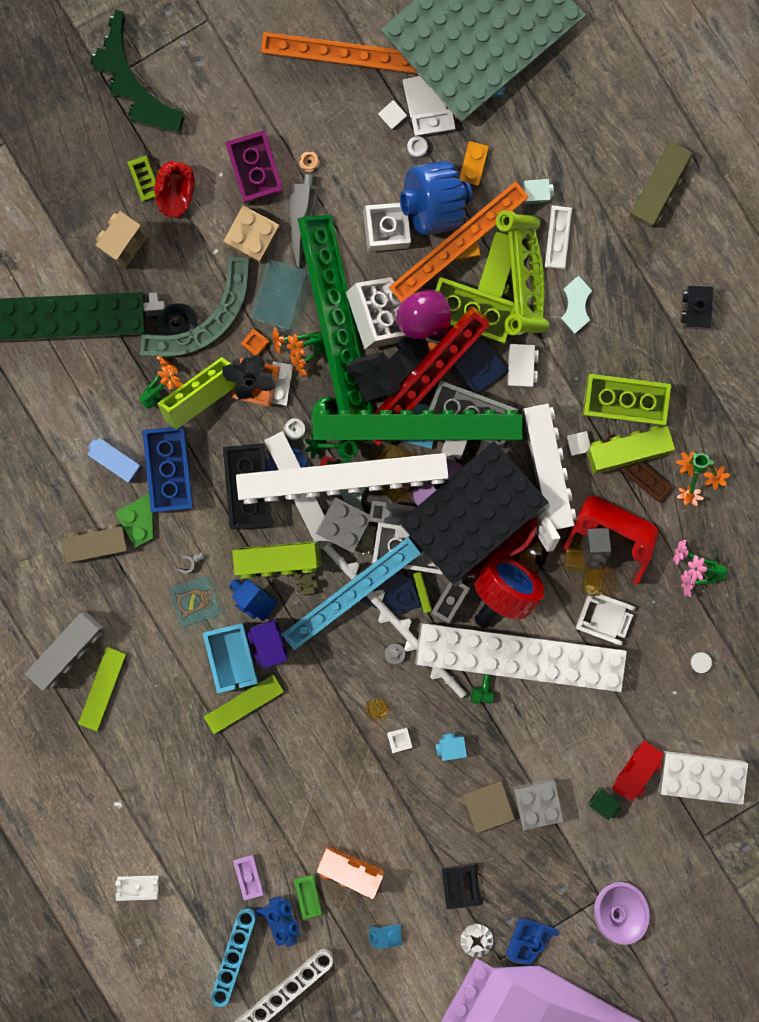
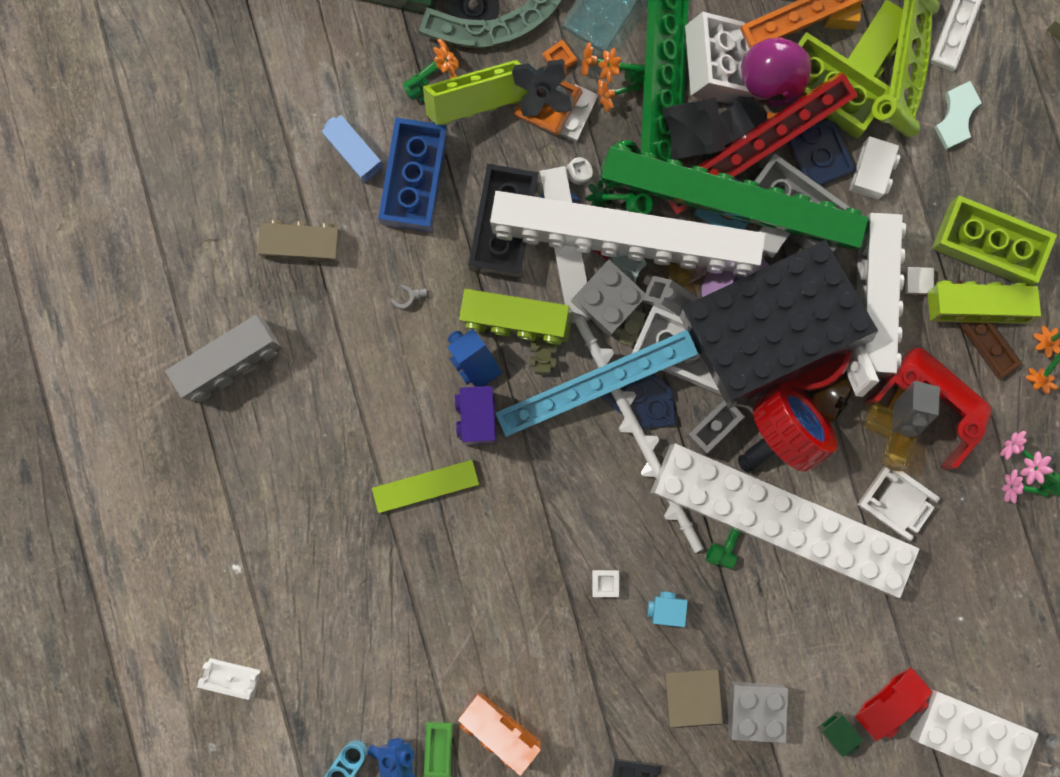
camera: 20 degrees right, 5 degrees down
(102, 689) = (258, 420): lime tile -> none
(137, 520) = (359, 230): bright green wing -> none
(194, 601) = (401, 344): clear light blue tile -> none
(230, 657) = (425, 423): medium azure piece -> none
(248, 877) = (370, 704): lavender plate -> none
(376, 708) = (587, 536): clear yellow tile -> none
(394, 653) = (627, 475): light grey tile -> none
(422, 592) = (682, 408): lime tile -> none
(701, 662) = (1004, 589): white tile -> none

